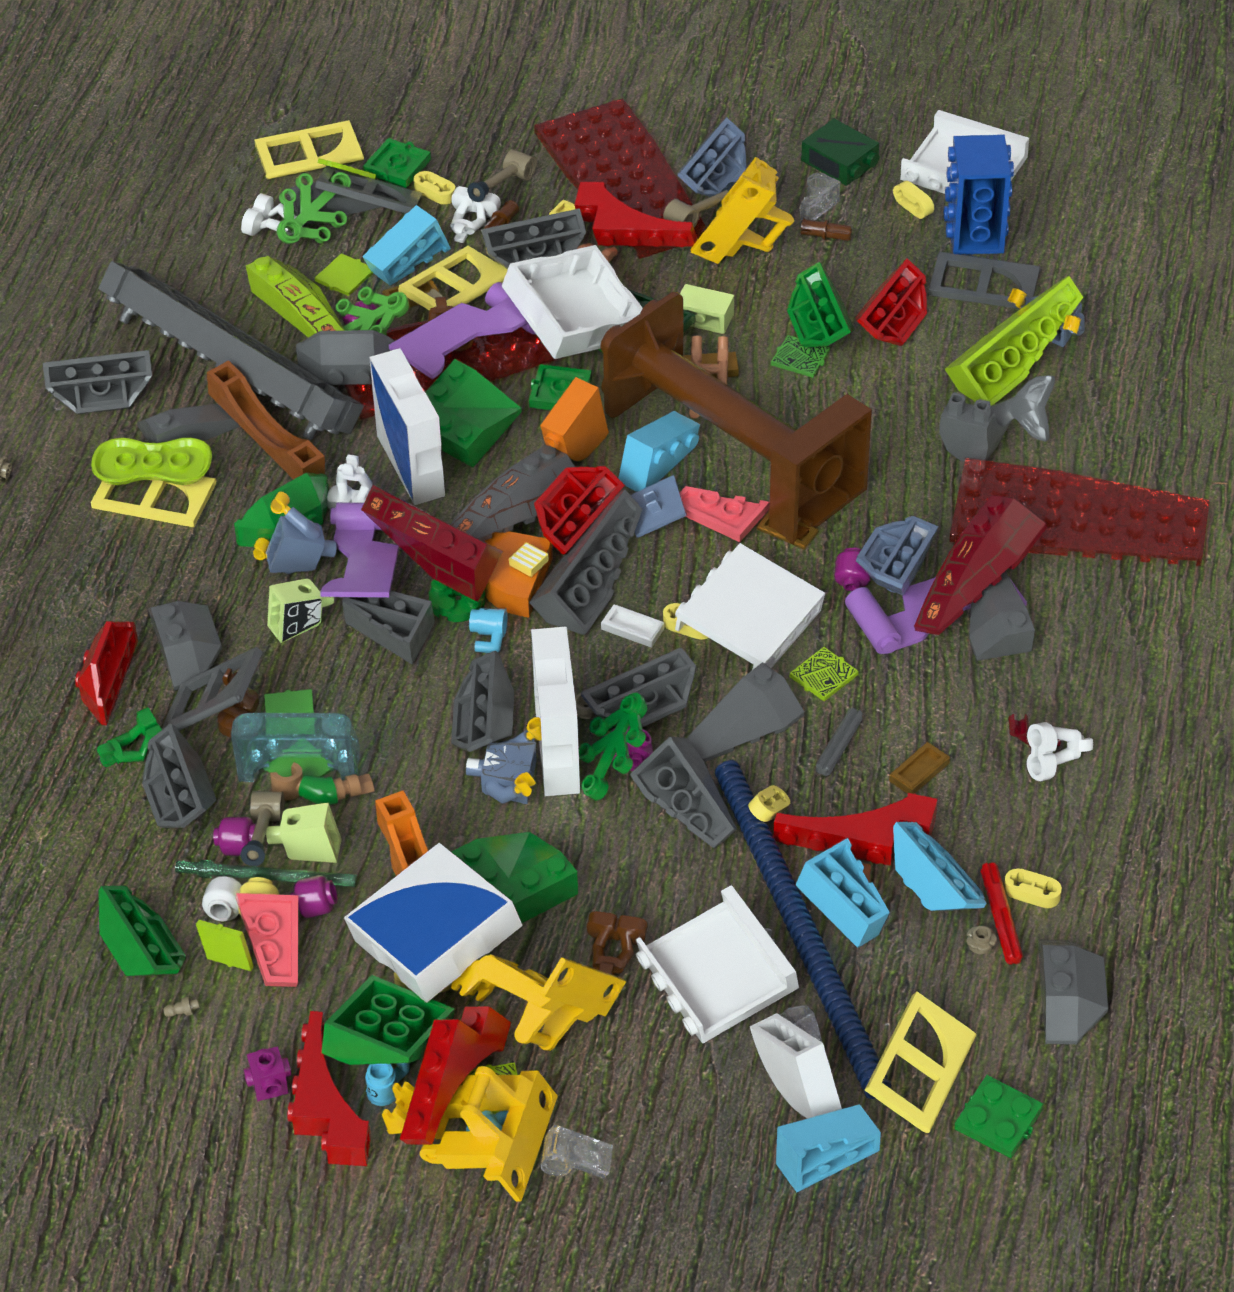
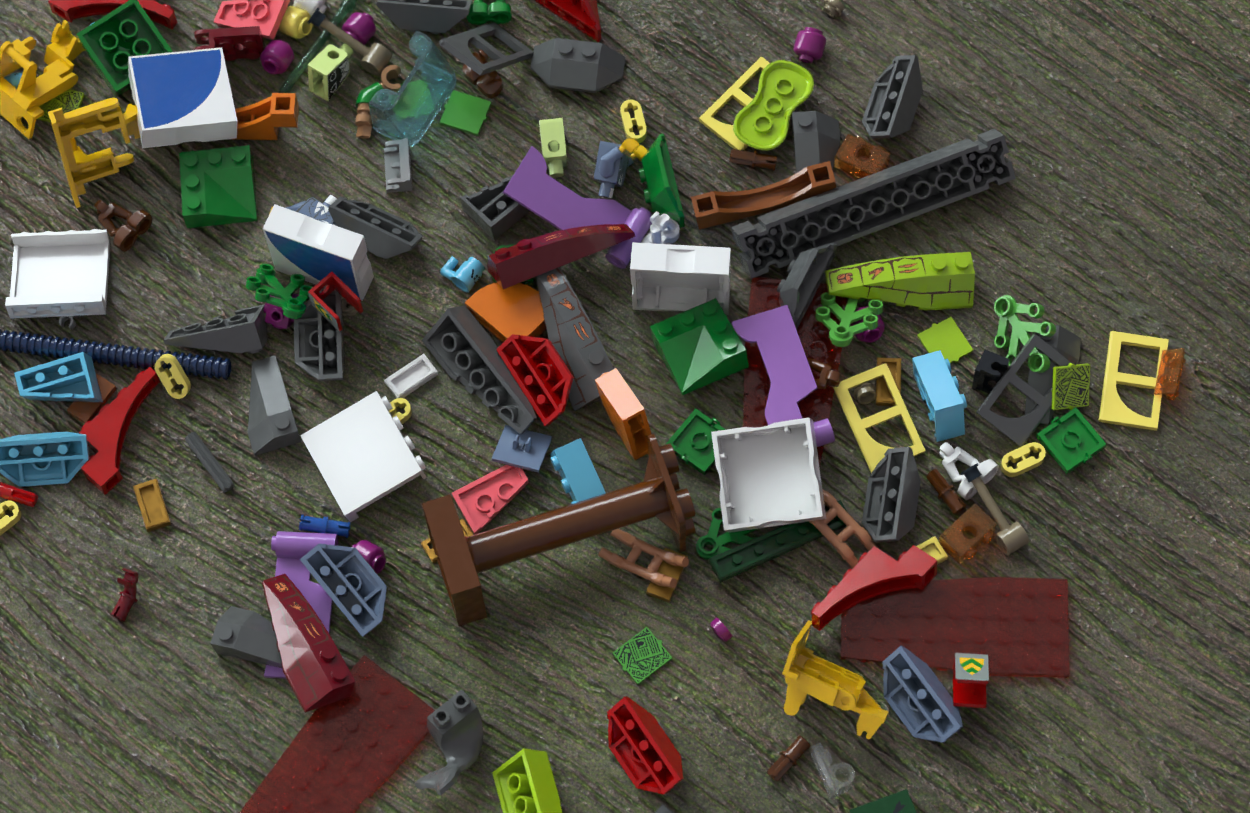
camera: 120 degrees right, 20 degrees up
(59, 465) = (809, 44): none -> magenta head
(176, 383) = (854, 147): none -> clear orange brick
(221, 462) = (752, 159): none -> reddish brown axle
(225, 570) = (629, 122): none -> light yellow beam
(260, 216) = (1047, 294): white piece -> none
(290, 122) = (1169, 373): none -> clear orange hinge
(323, 933) = (235, 42): none -> dark red plate
(366, 219) = (990, 368): none -> black hinge
(392, 732) = (398, 166): none -> light grey hinge
(449, 1057) = (72, 65): red arch -> none
(528, 559) = (499, 316): light yellow tile -> none
(534, 191) = (972, 521): none -> clear orange brick
(611, 685) = (333, 283): none -> red piece
(675, 136) = (970, 680): none -> piece
(679, 211) = (852, 630): dark tan piece -> none
(711, 308) = (735, 600): yellowish green brick -> none
(739, 308) = (721, 630): none -> magenta tile
(817, 309) = (668, 688): green wedge -> none
(823, 674) = (283, 489): lime piece -> none
(842, 618) = (324, 525): none -> blue pin
(1043, 741) = (96, 589): white piece -> none

